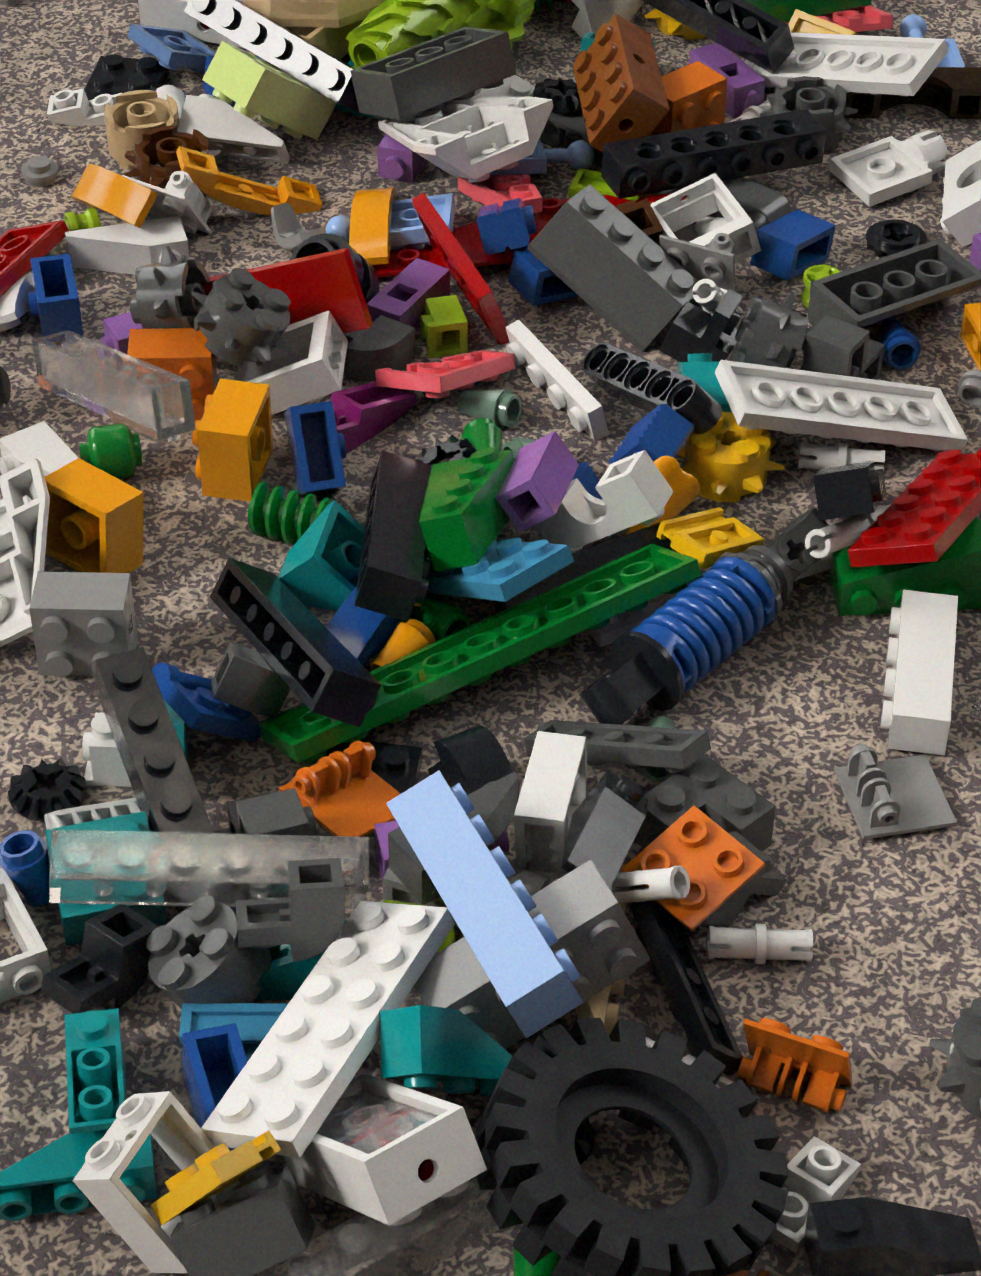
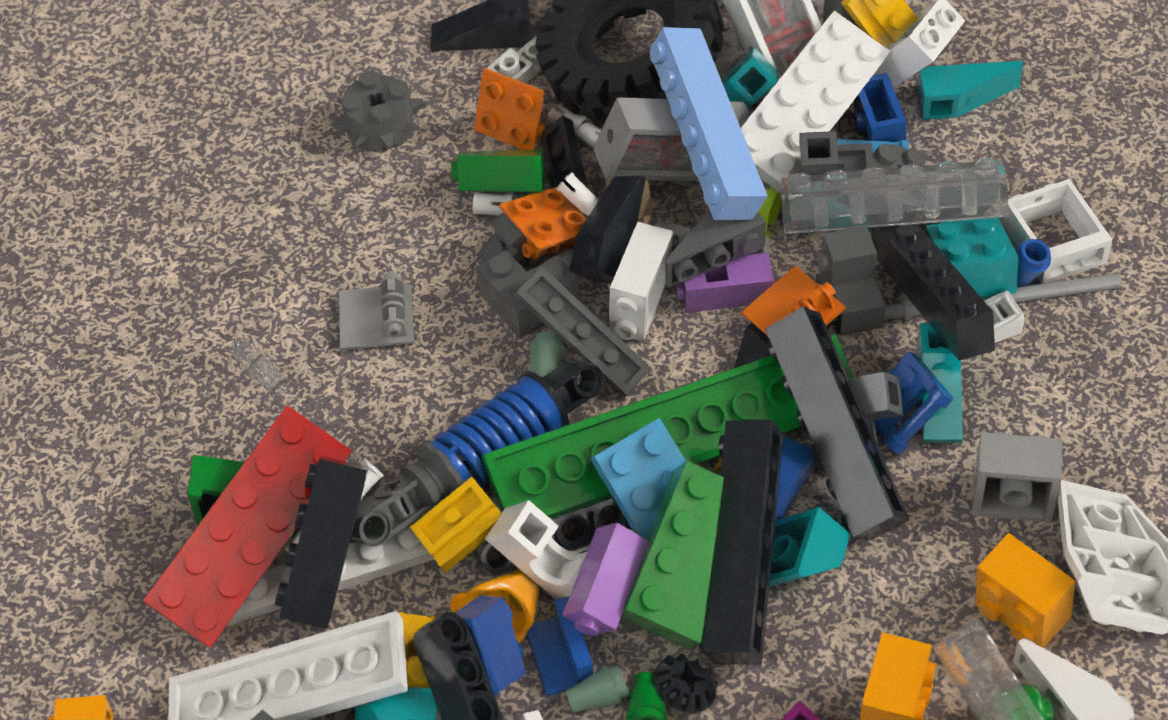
camera: 170 degrees left, 10 degrees up
(35, 802) = (1027, 376): black gear -> none
(94, 1069) = (960, 114): teal slope -> none
(102, 756) = (981, 379): white brick -> none
(281, 517) = (835, 614): green piece -> none
(316, 448) = (815, 670): blue brick -> none
(471, 759) = (699, 324): black brick -> none
(777, 961) = (500, 170): none -> green slope
(921, 673) = (329, 379): white brick -> none

